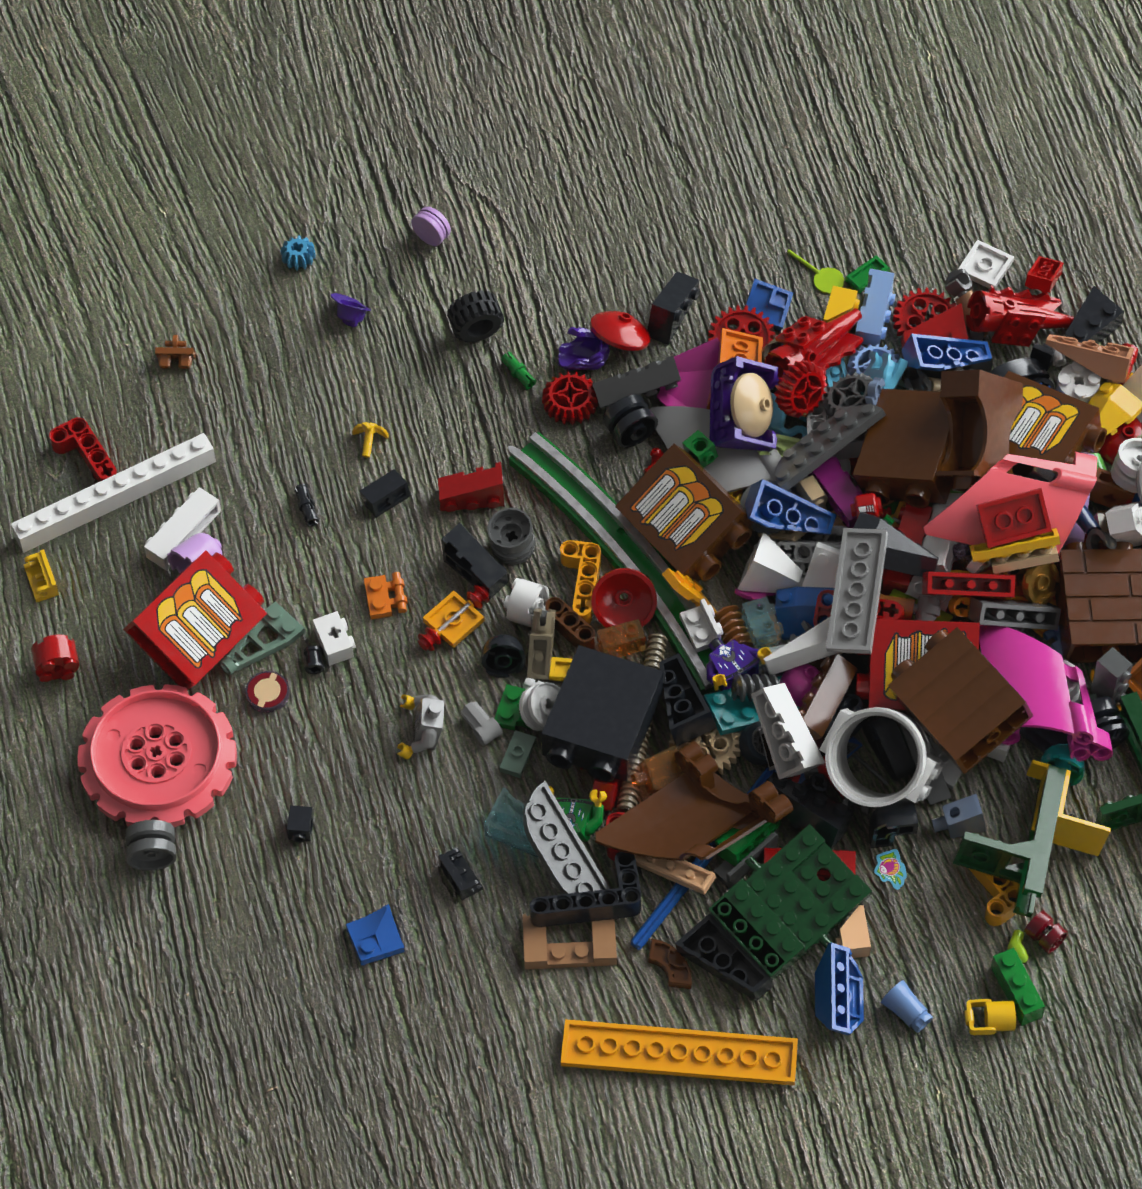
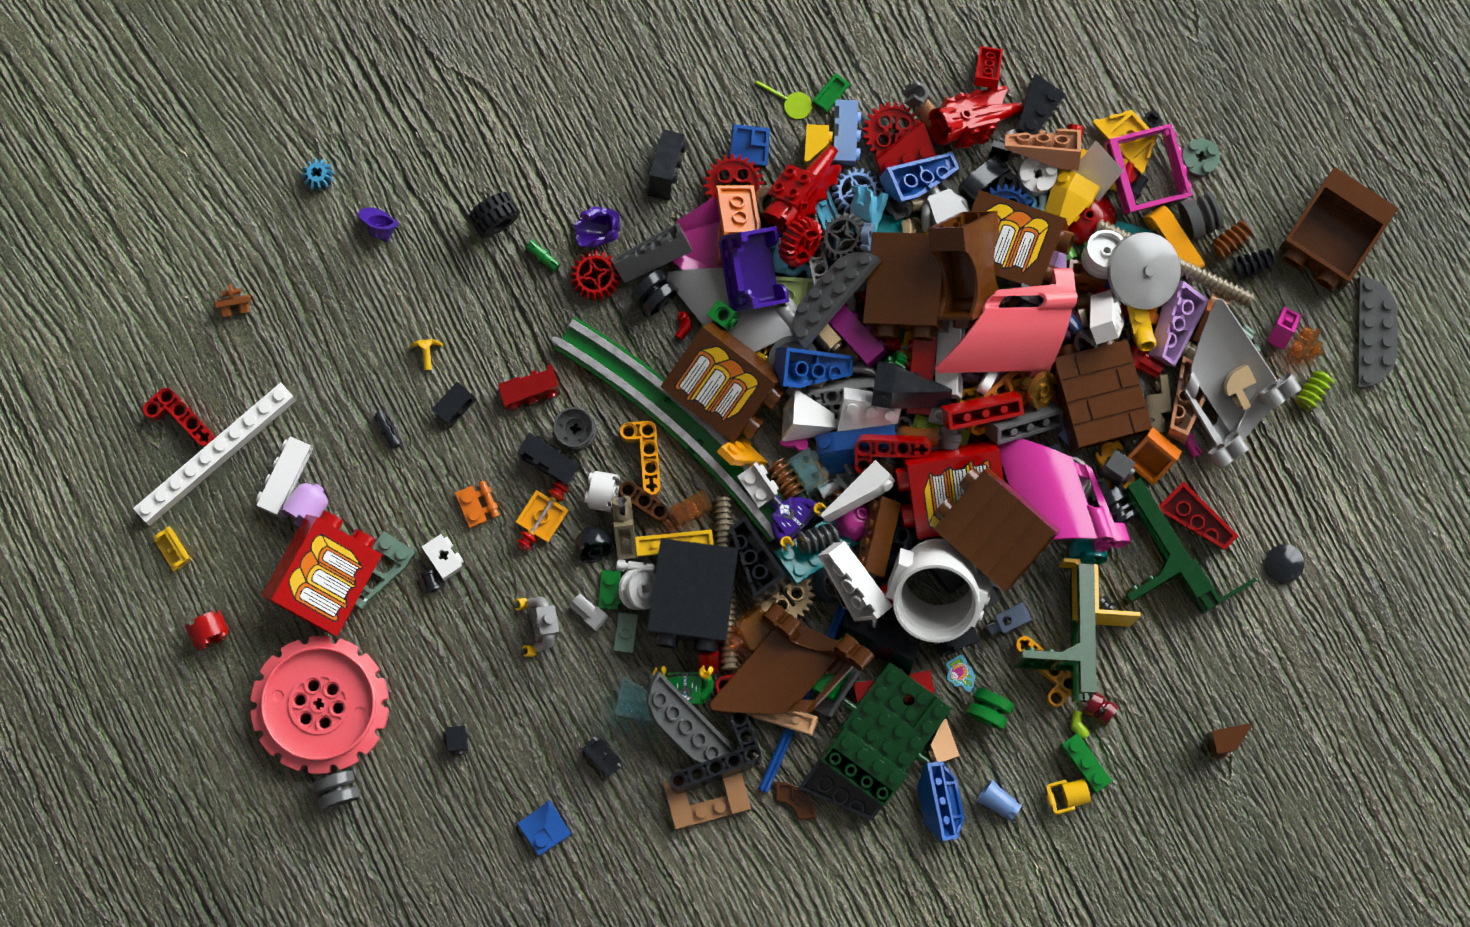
camera: 15 degrees left, 20 degrees up
(267, 691) = (397, 618): tile -> none
(431, 226) = (431, 125): lavender head -> none
(613, 610) = (686, 480): red dish -> none
(620, 330) = (625, 201): red dish -> none
(679, 1052) = (819, 880): light orange plate -> none
(751, 405) = (761, 270): tan dish -> none
(857, 591) = (890, 443): light grey plate -> none
(866, 503) = (881, 351): red head -> none
(916, 903) = (989, 708): none -> green wheel
(986, 264) = (934, 64): white plate -> none
(1014, 517) = (1012, 347): red plate -> none
(1020, 560) = (1026, 376): tan plate -> none
(1046, 541) = (1016, 368): yellow plate -> none

